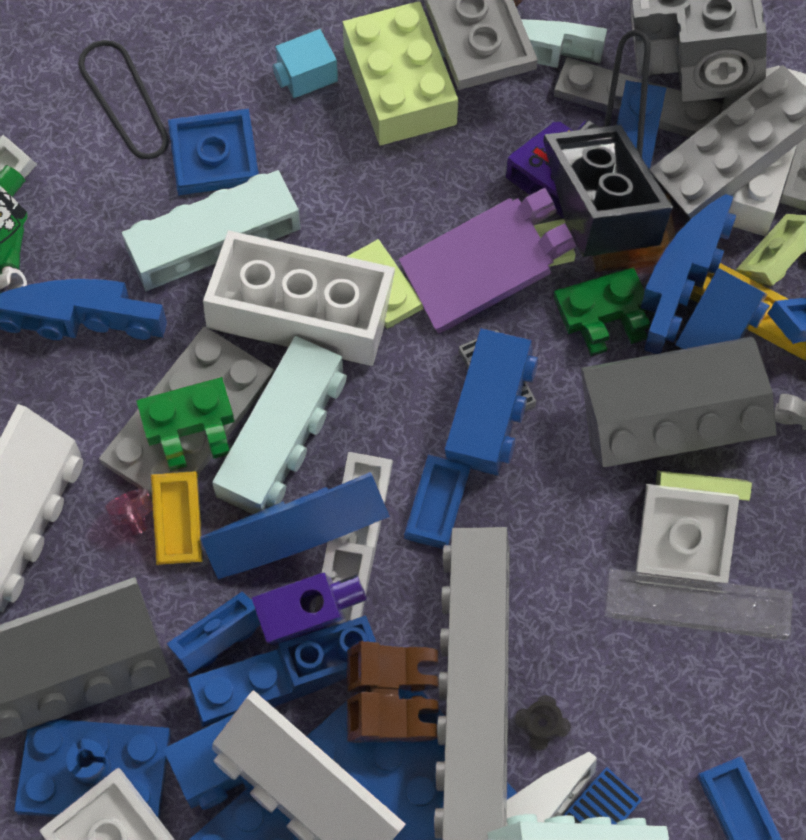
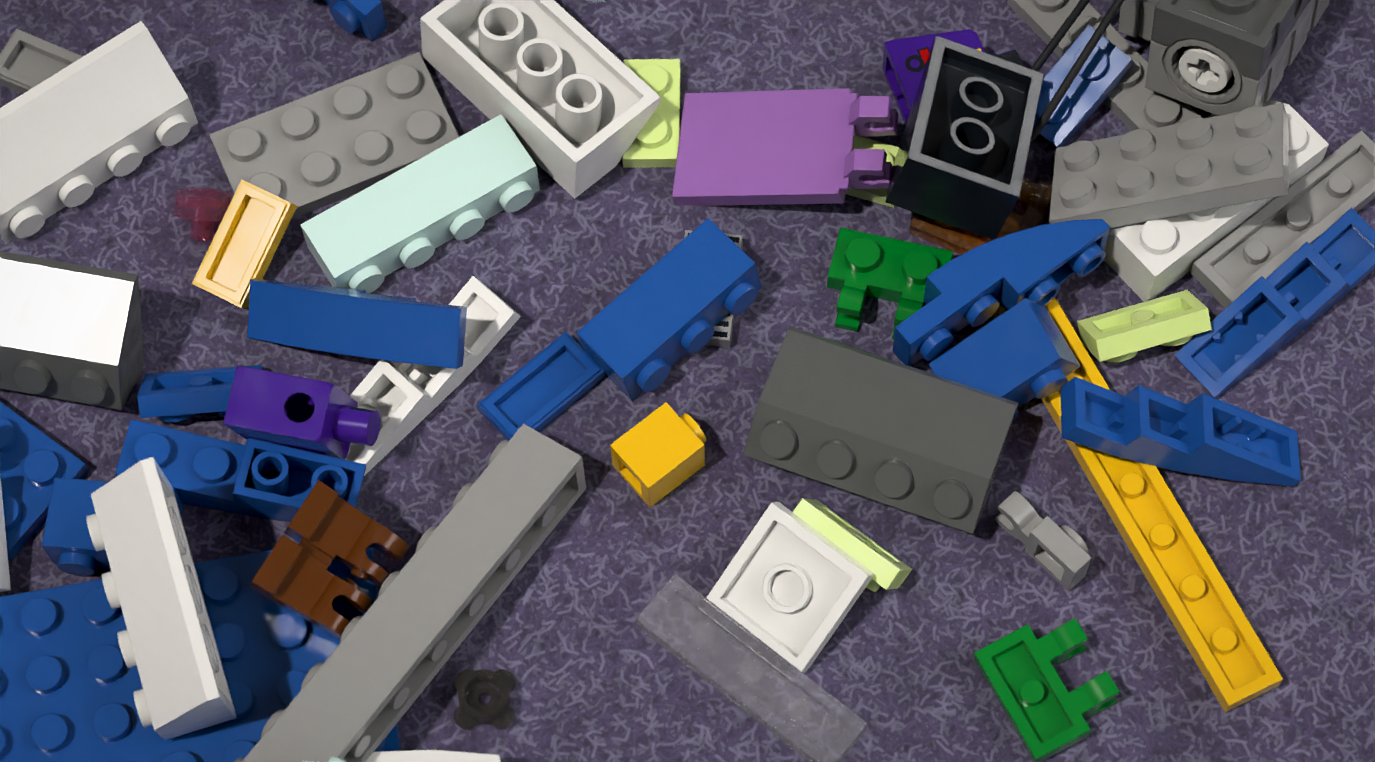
camera: 35 degrees right, 0 degrees up
(187, 412) = (325, 132): green plate -> none
(545, 498) = (659, 453): none -> yellow brick

